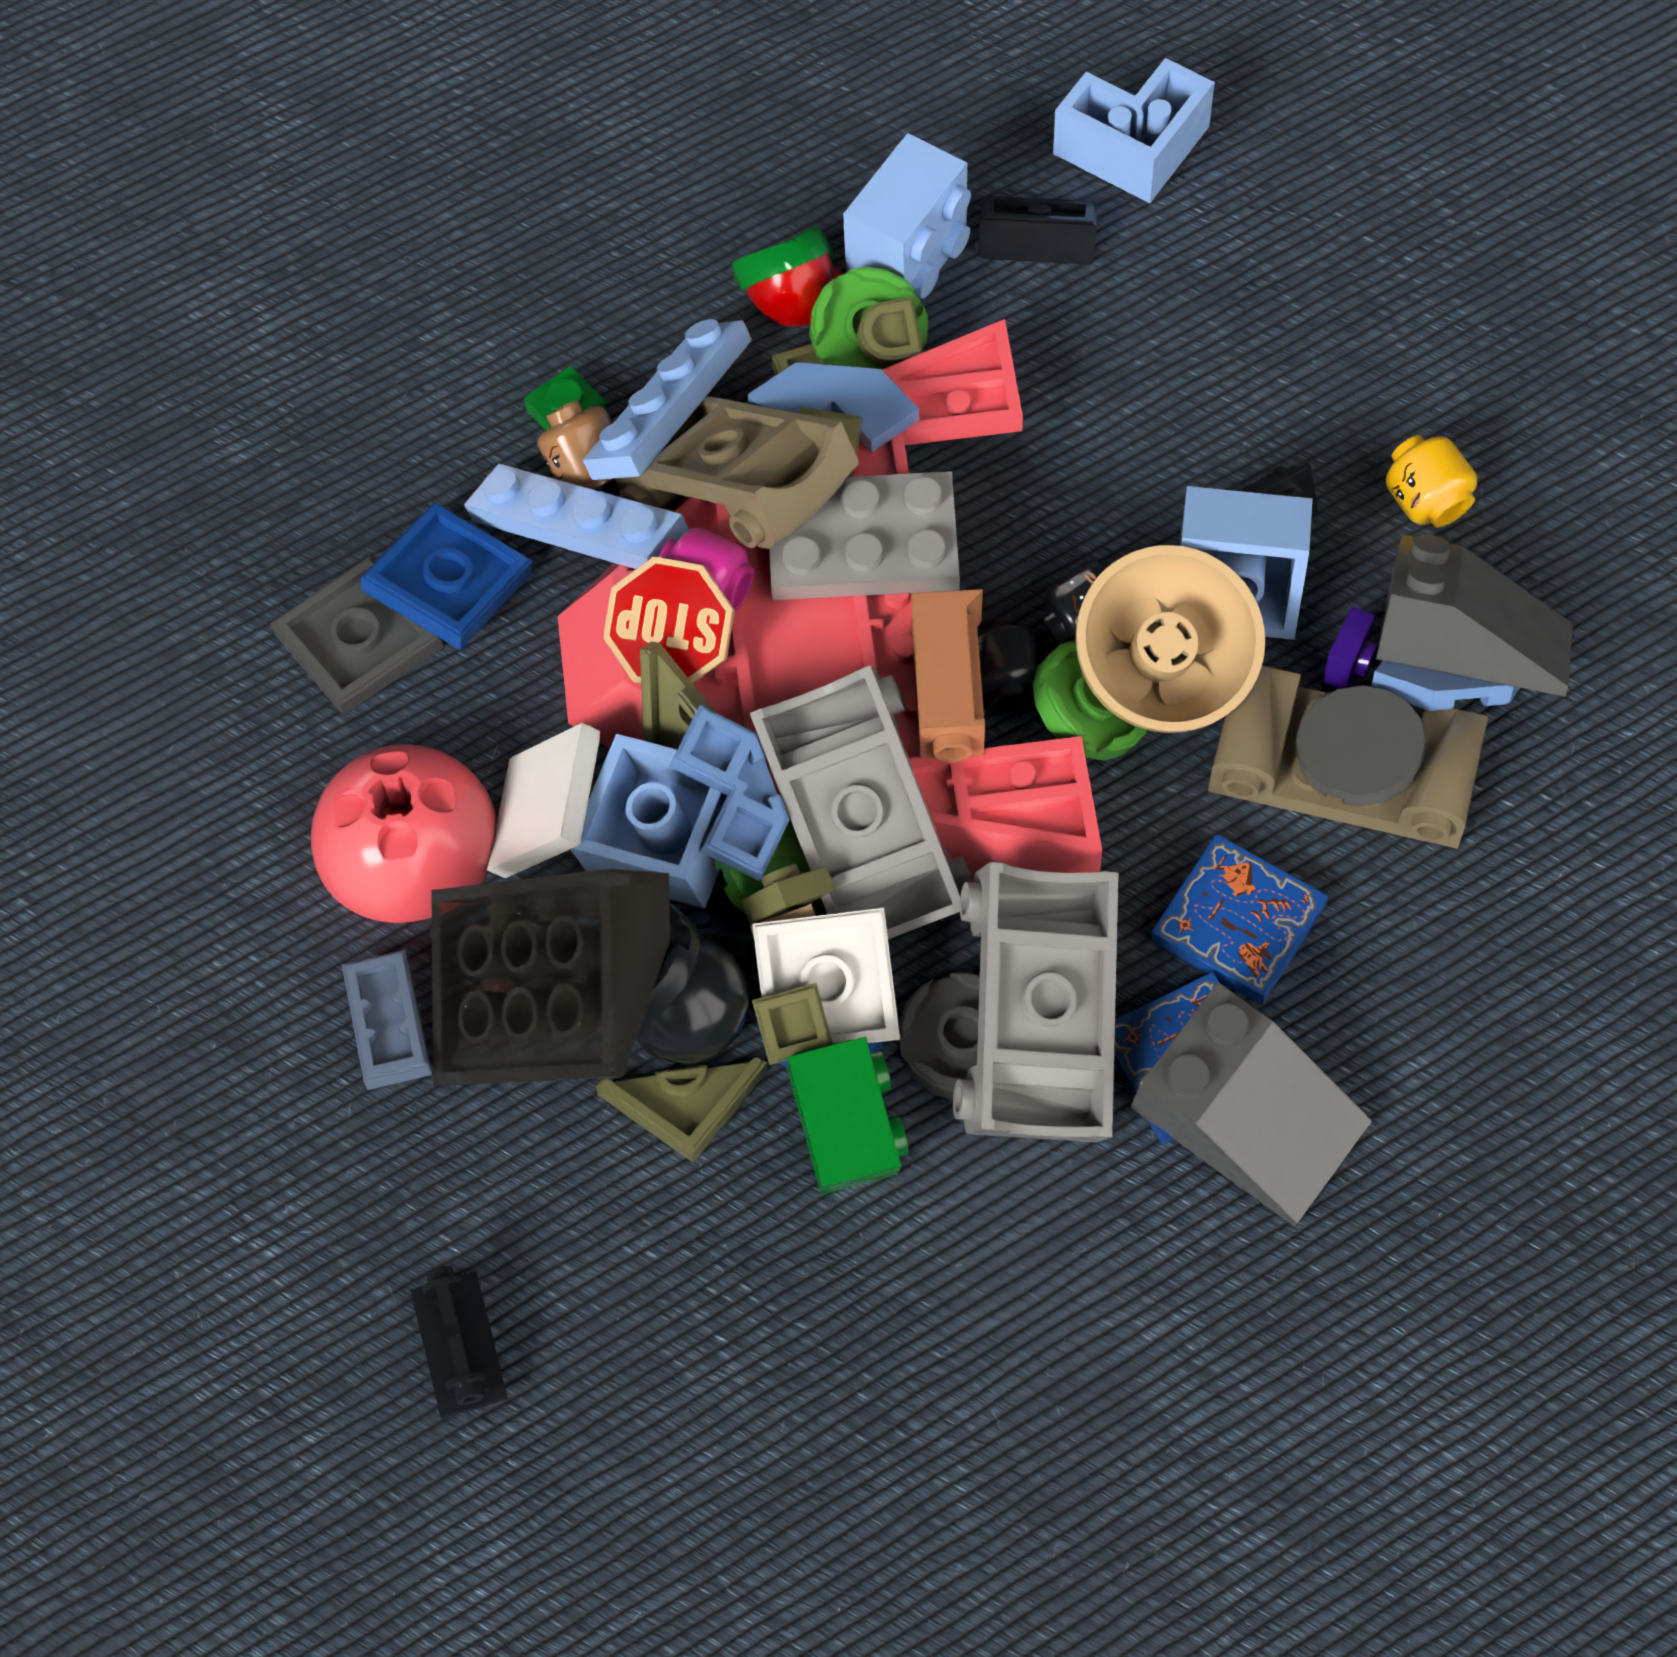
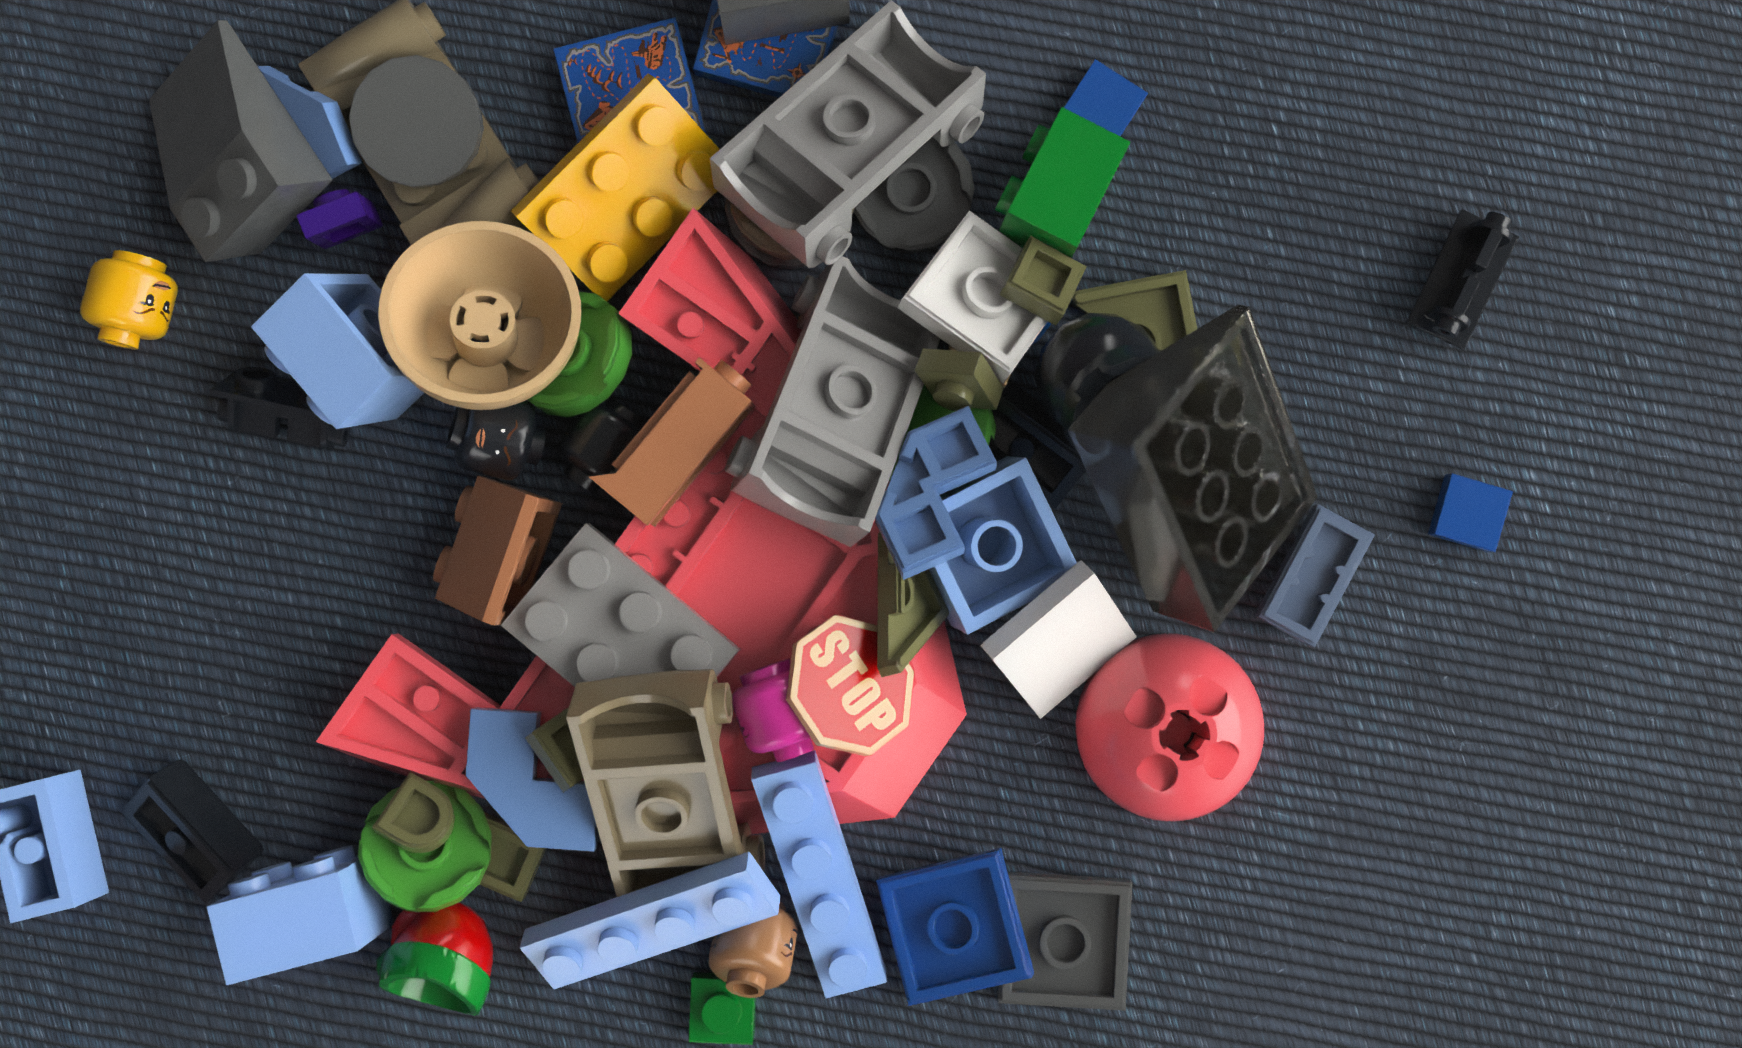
camera: 140 degrees left, 25 degrees up
(298, 1173) = (1470, 512): none -> blue tile
(875, 1226) = (1106, 98): none -> blue tile
(1007, 533) = (495, 549): none -> nougat slope
(1170, 833) = (623, 188): none -> yellow plate

